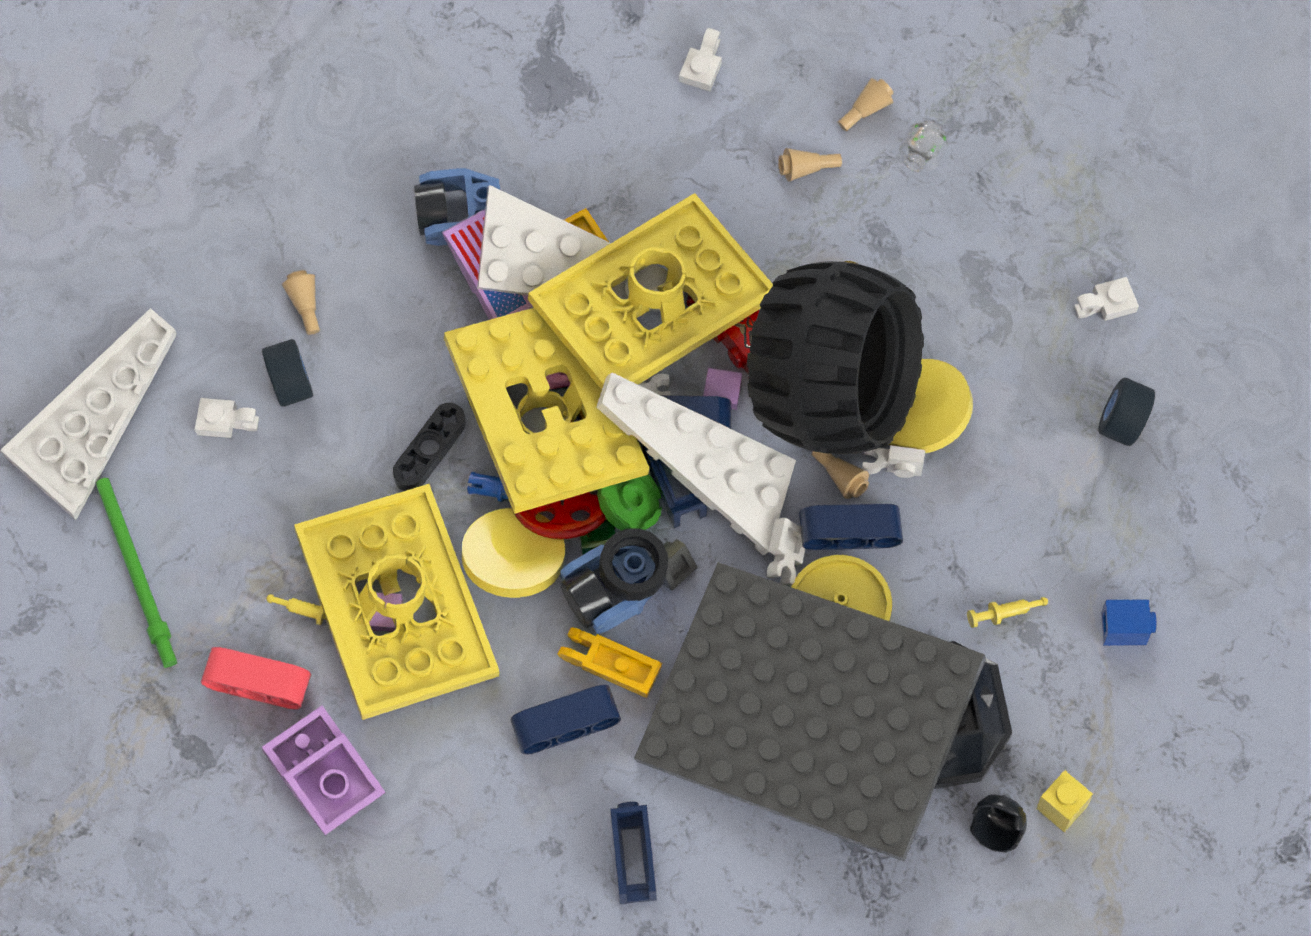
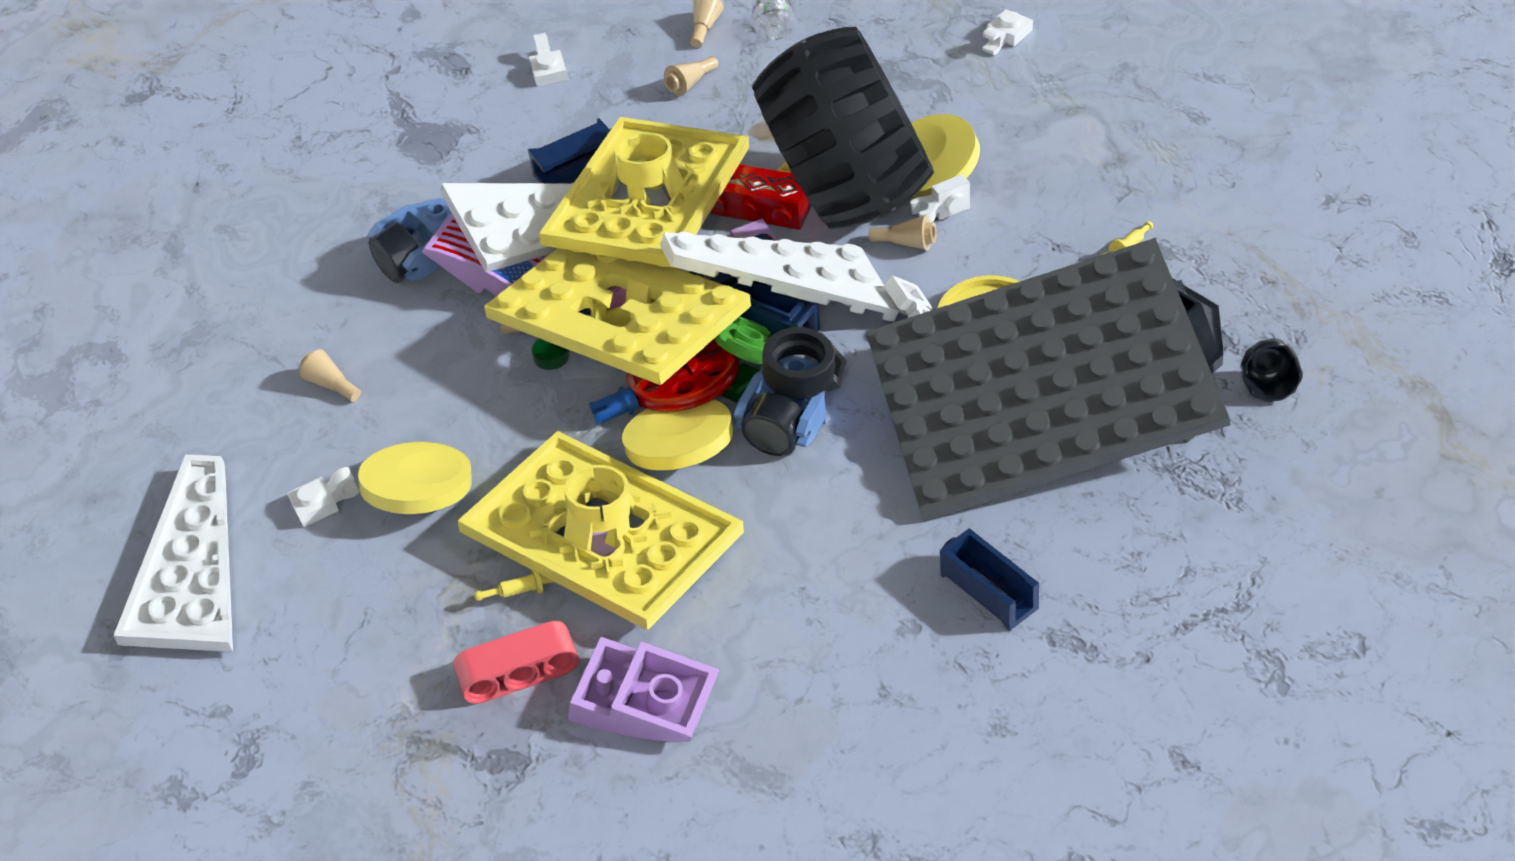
camera: 30 degrees left, 20 degrees down
(158, 630) = (384, 684): bright green bar -> none
(287, 372) = (357, 424): black wheel -> none
(297, 454) = (415, 477): none -> light yellow piece
(451, 432) = (526, 400): black beam -> none
(565, 719) = (834, 522): dark blue beam -> none
(612, 662) = (833, 461): yellow hinge -> none
(642, 193) = (567, 157): none -> dark blue window
(850, 526) = (949, 258): dark blue beam -> none
(1064, 801) = (1306, 325): light yellow brick -> none
(1126, 411) = (1092, 73): black wheel -> none
(1127, 622) = (1227, 195): blue brick -> none

